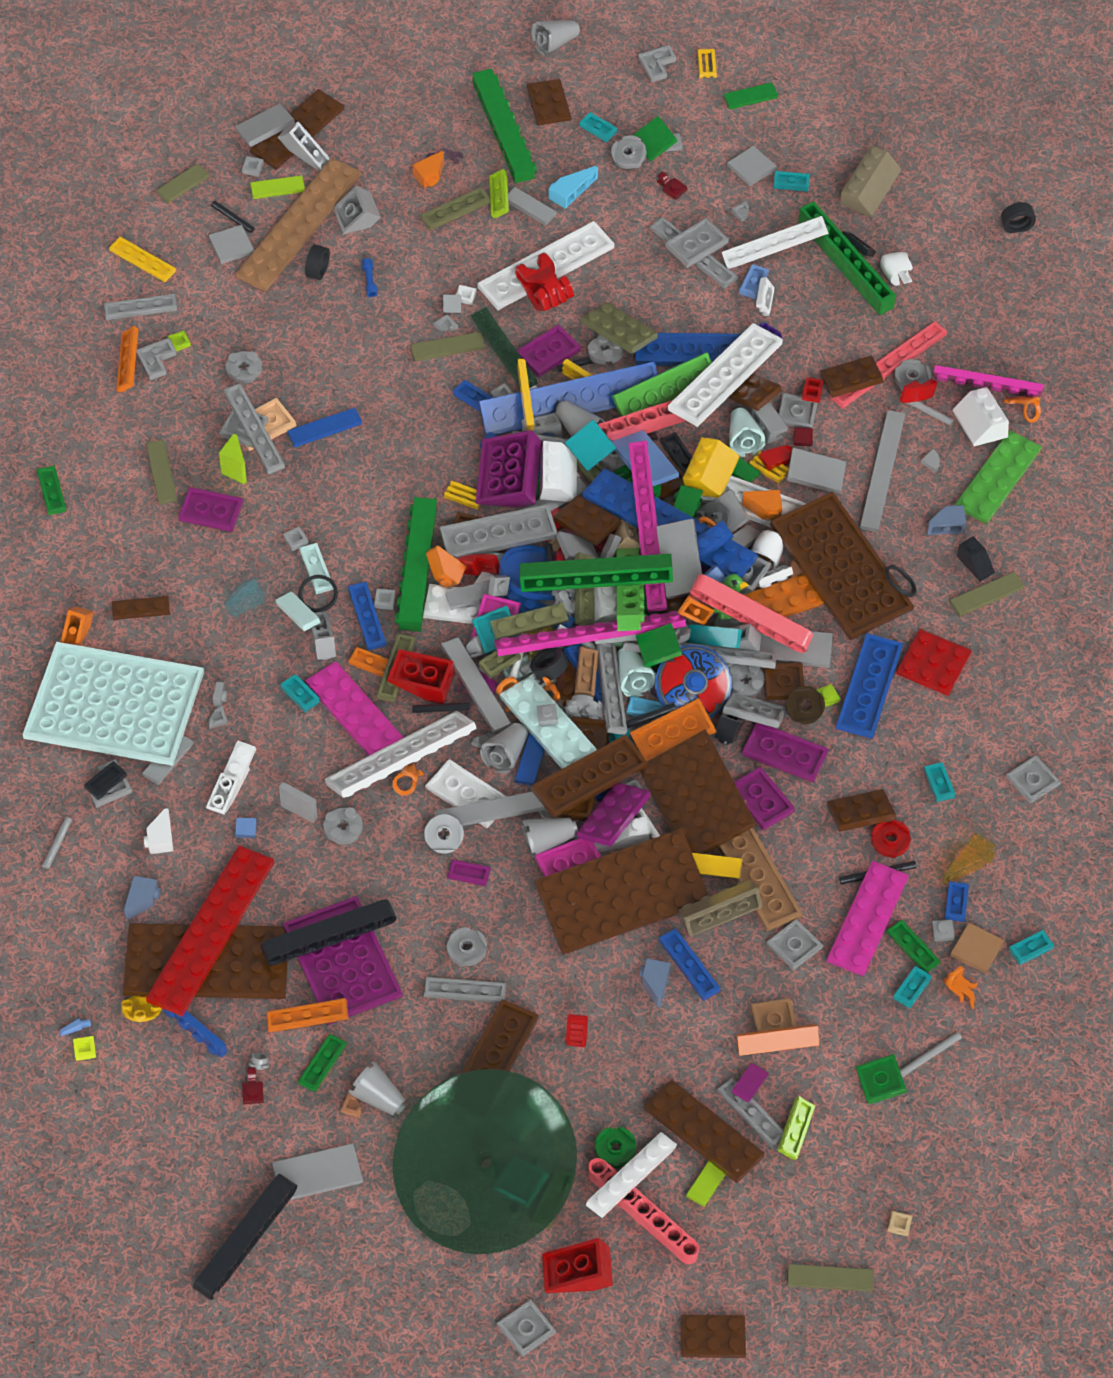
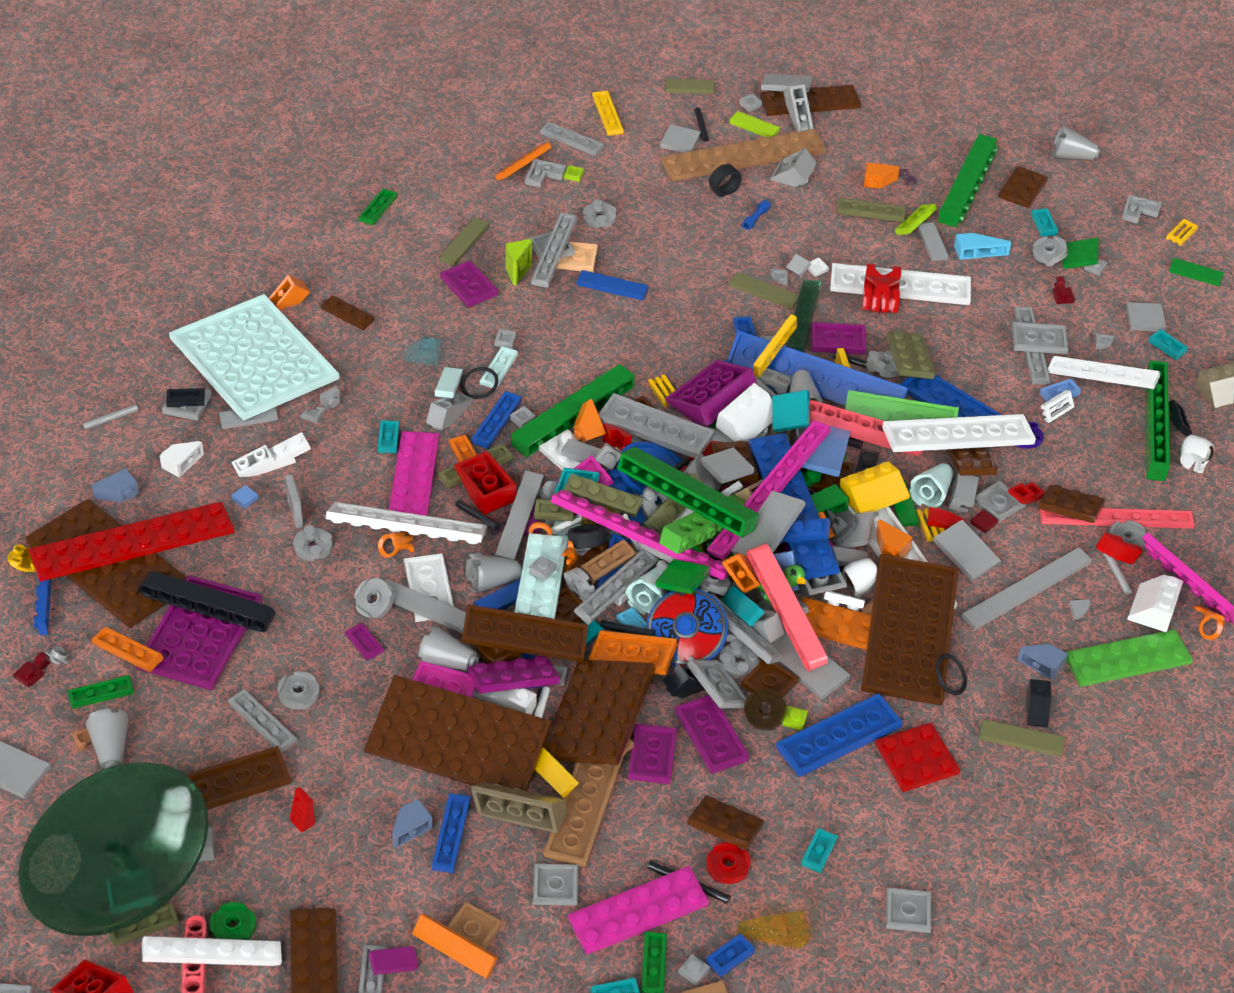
camera: 40 degrees right, 10 degrees down
(594, 528) = (727, 465): none -> light grey tile

